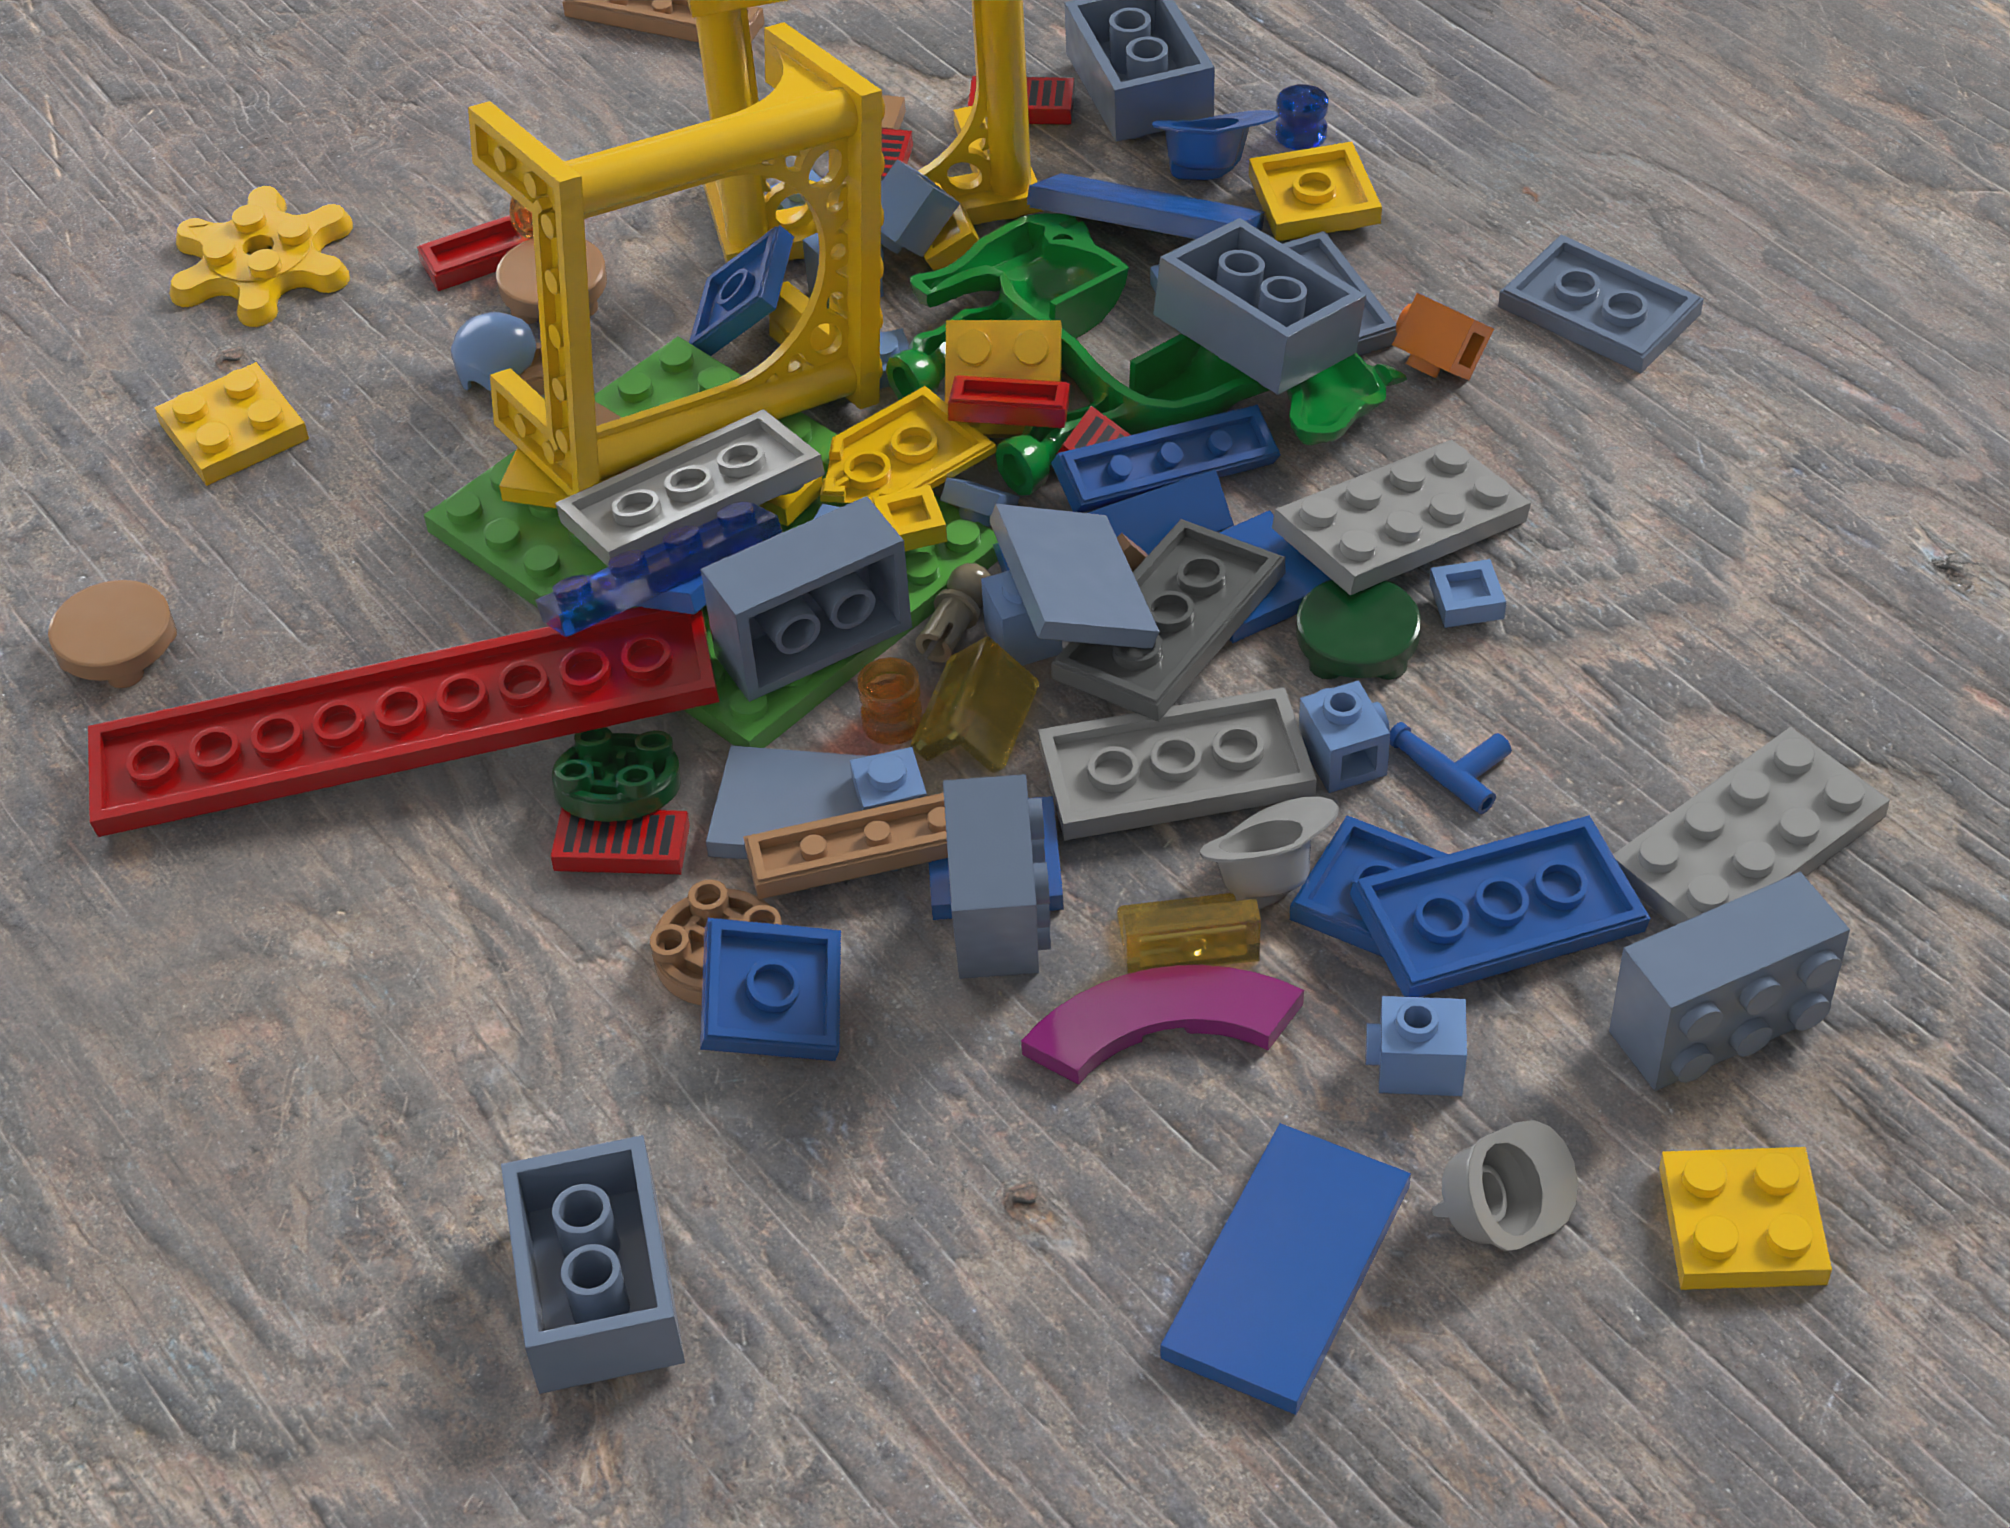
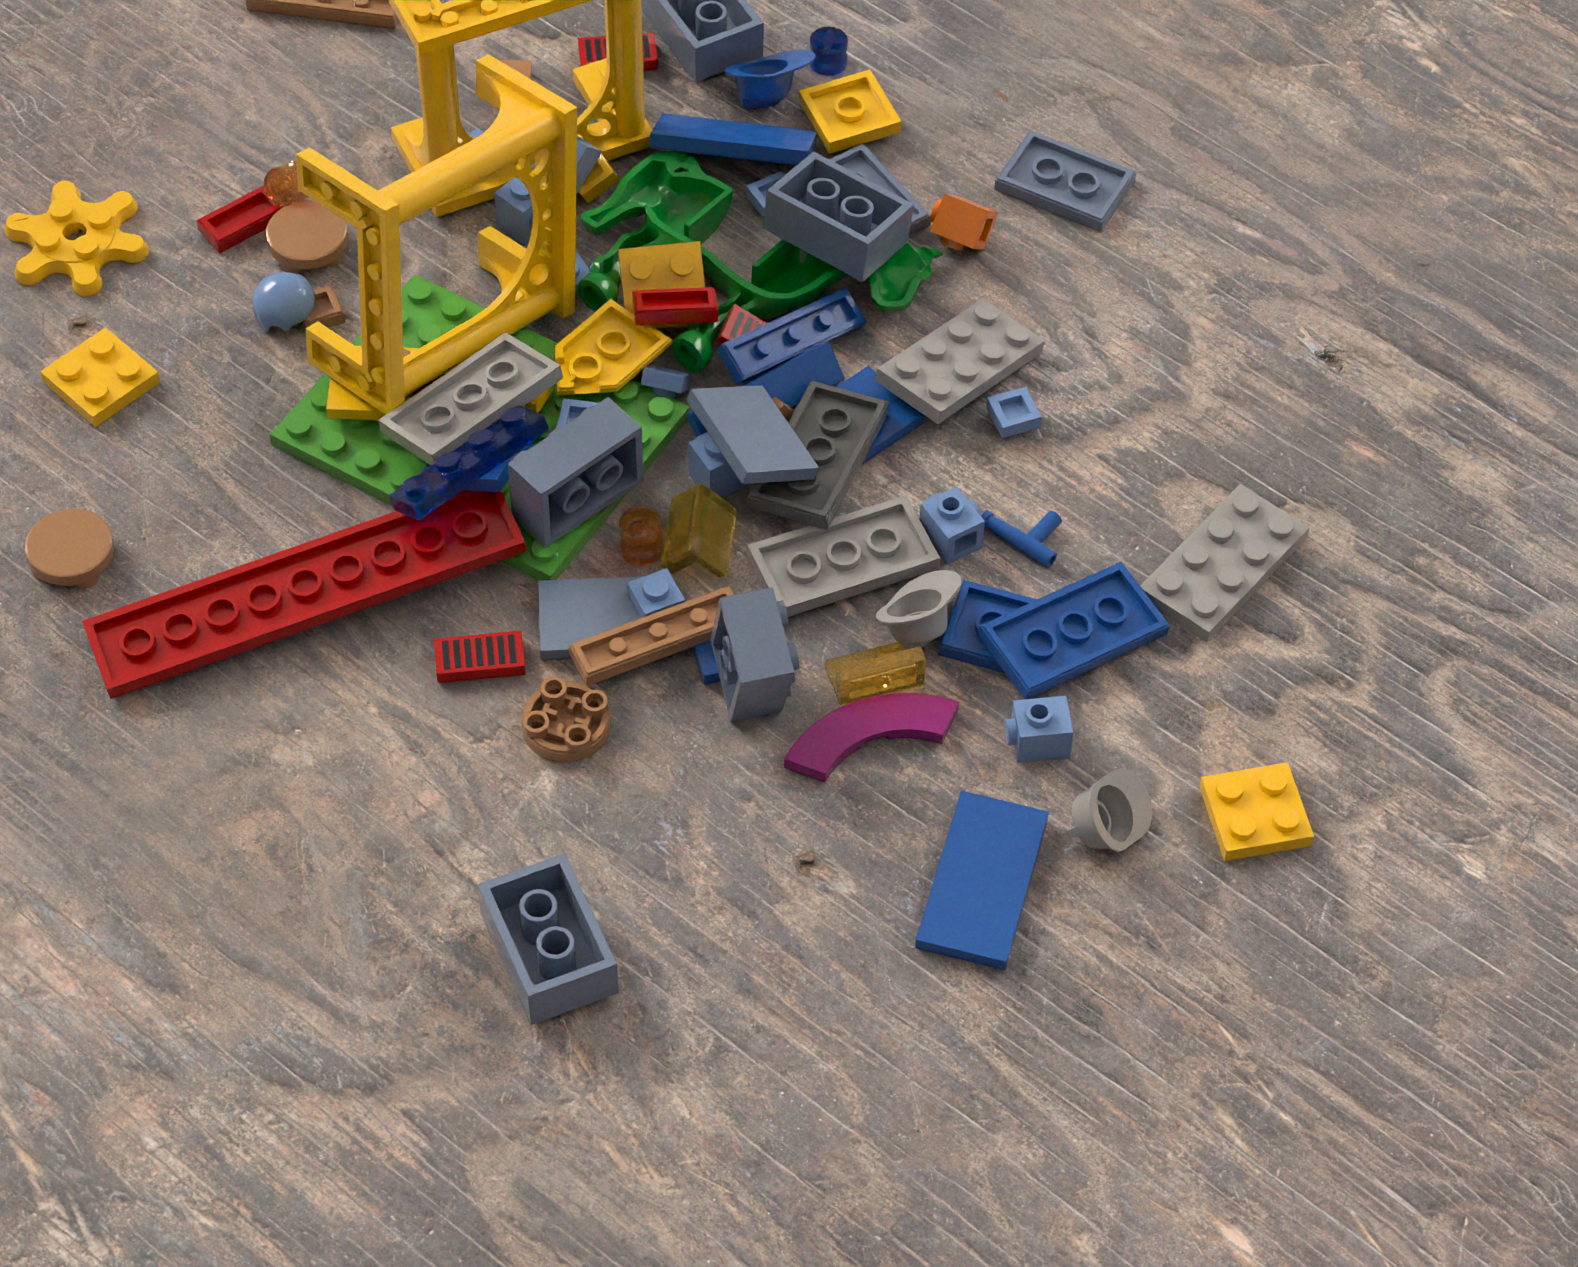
camera: 15 degrees left, 5 degrees up
(616, 775) = (466, 611): dark green tile -> none
(742, 291) = (457, 237): blue tile -> none
(771, 989) = (613, 746): blue tile -> none
(914, 516) = (629, 397): yellow plate -> none
(954, 611) = (668, 464): dark tan pin -> none
(1358, 632) = (947, 449): dark green tile -> none
(1728, 981) = (1227, 663): sand blue brick -> none

